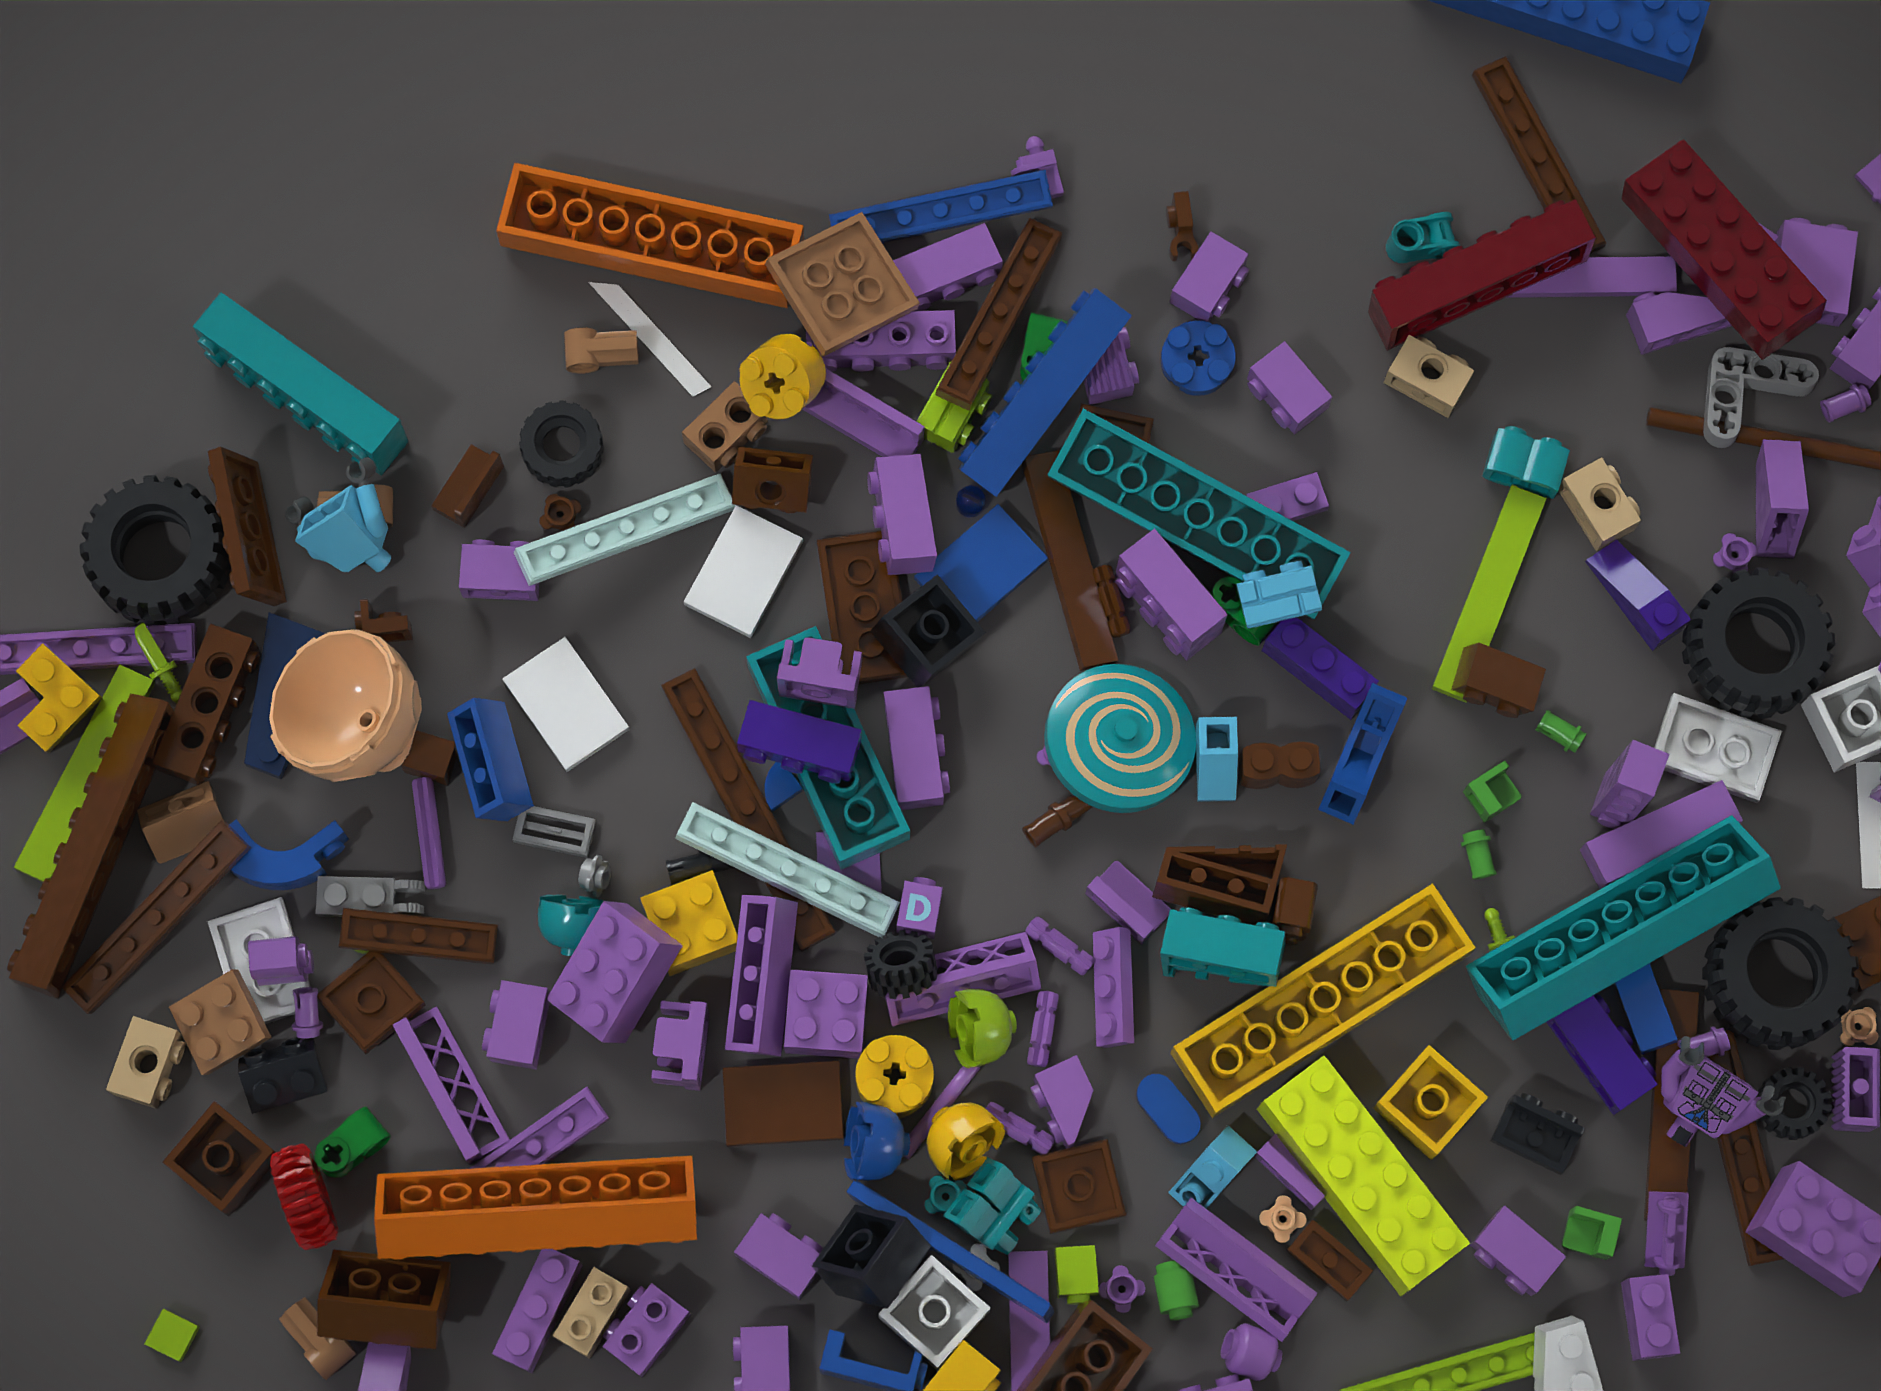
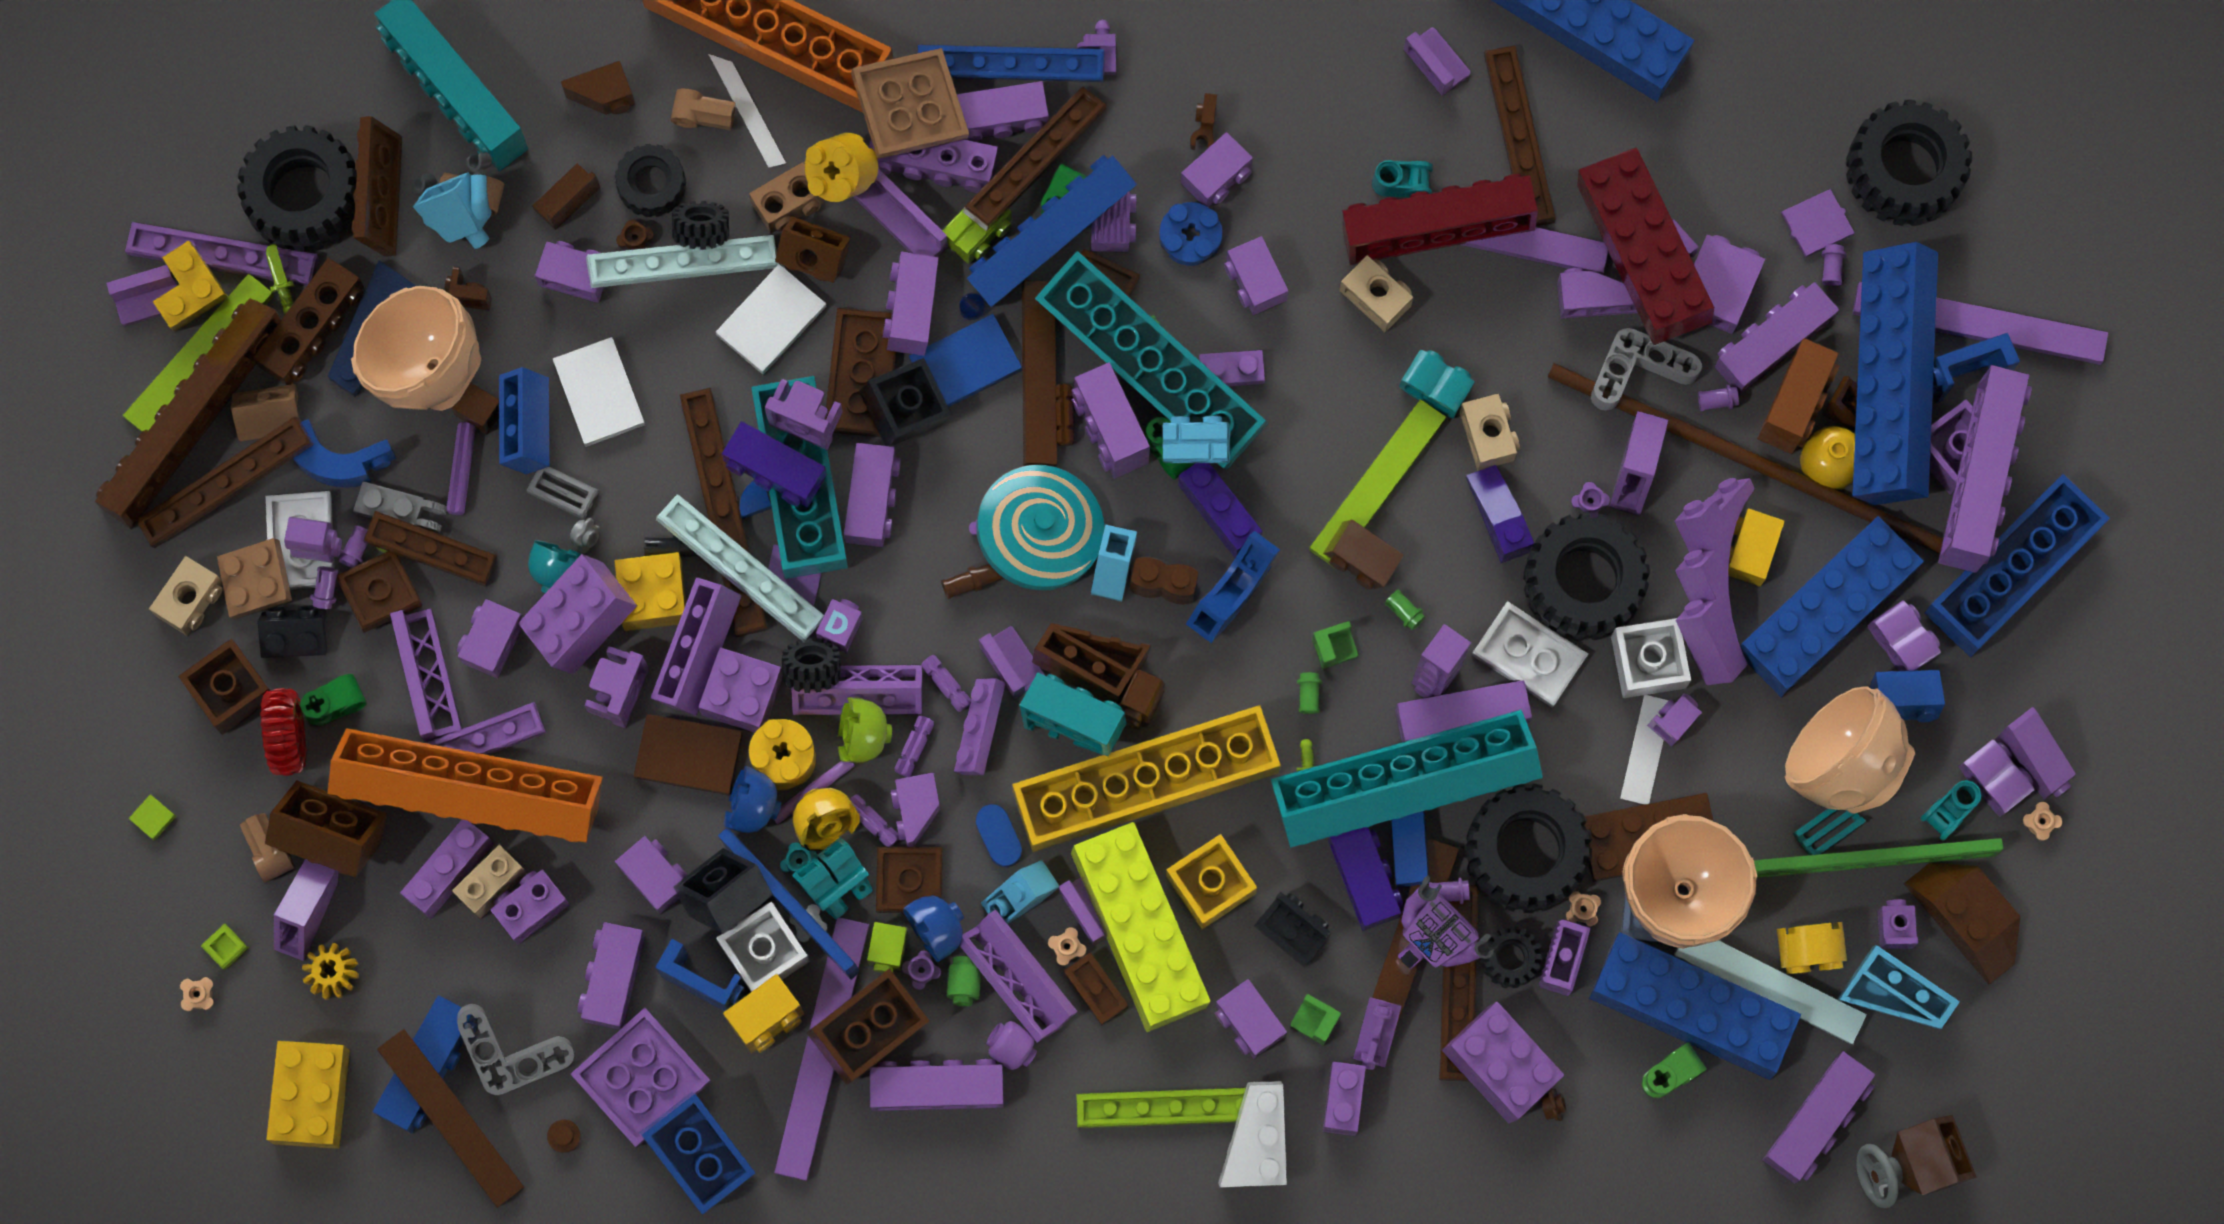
camera: 15 degrees right, 0 degrees up
(328, 957) = (354, 548): none -> medium lavender pin
(477, 352) = (601, 89): none -> reddish brown slope
(635, 482) = (700, 225): none -> black tyre
(1128, 1233) = (936, 924): none -> blue cylinder
(1421, 94) = (1436, 60): none -> medium lavender panel

